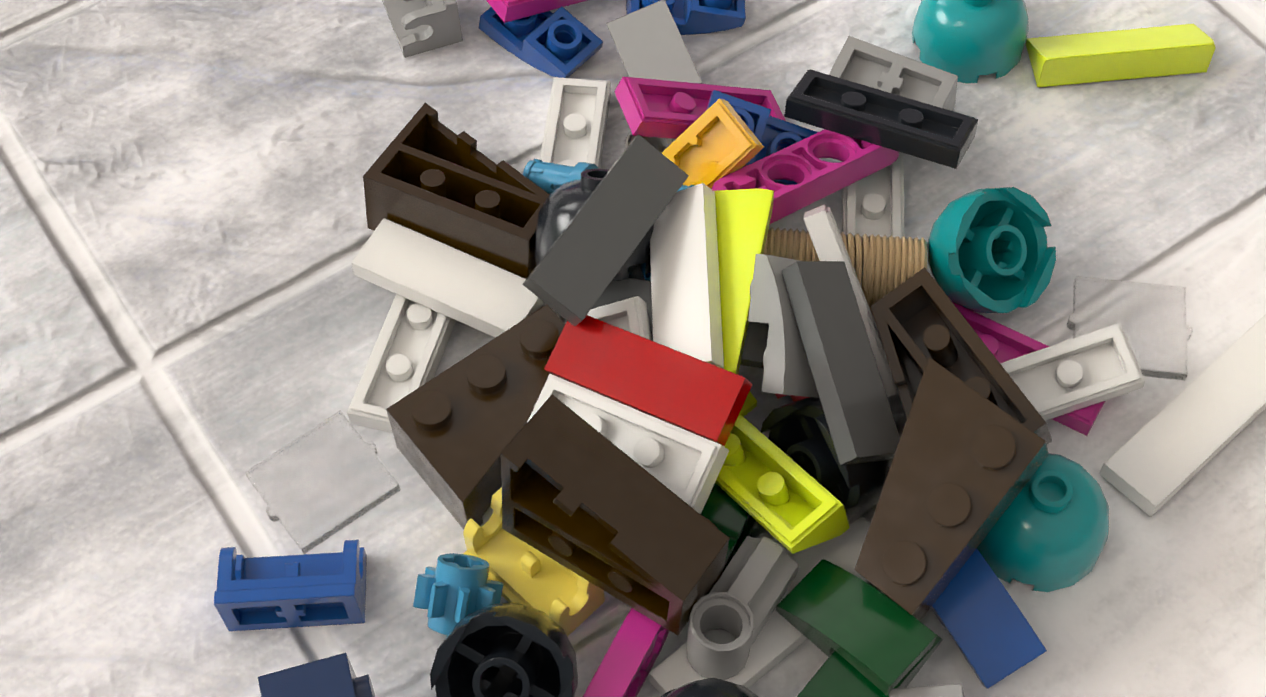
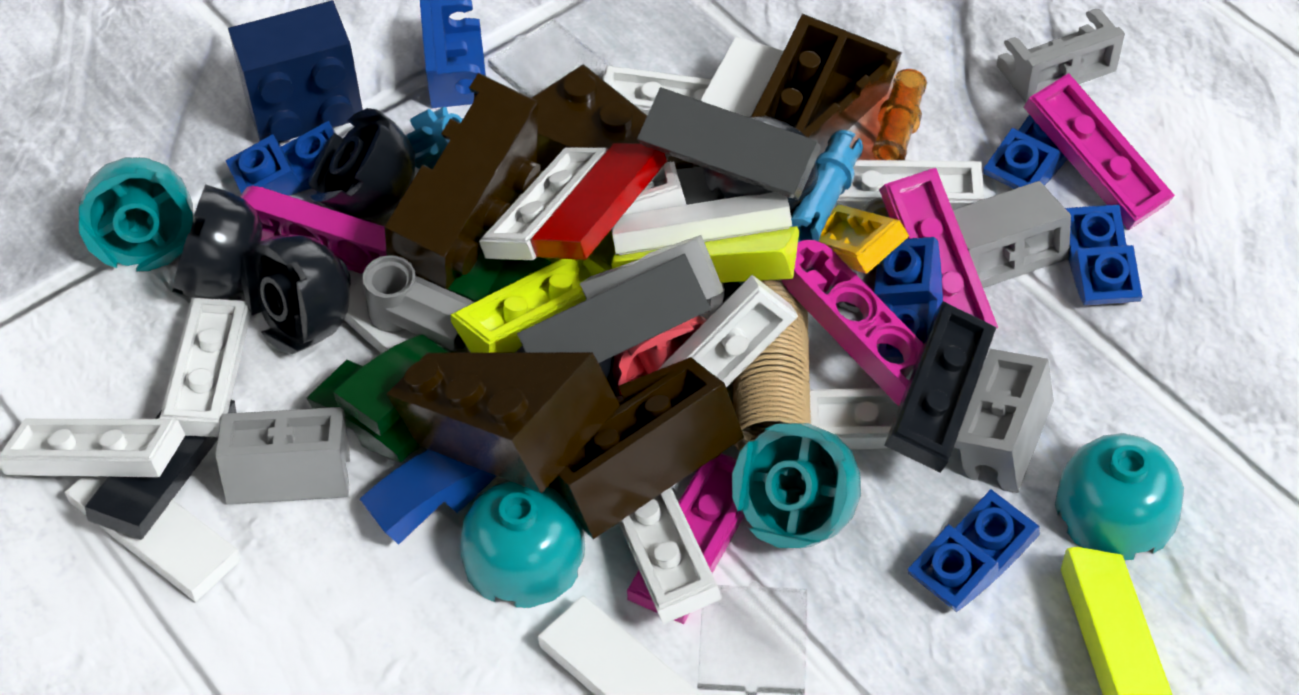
camera: 85 degrees right, 5 degrees down
(495, 138) = (900, 115): none -> clear orange pin
(1036, 150) = (975, 552): none -> blue slope

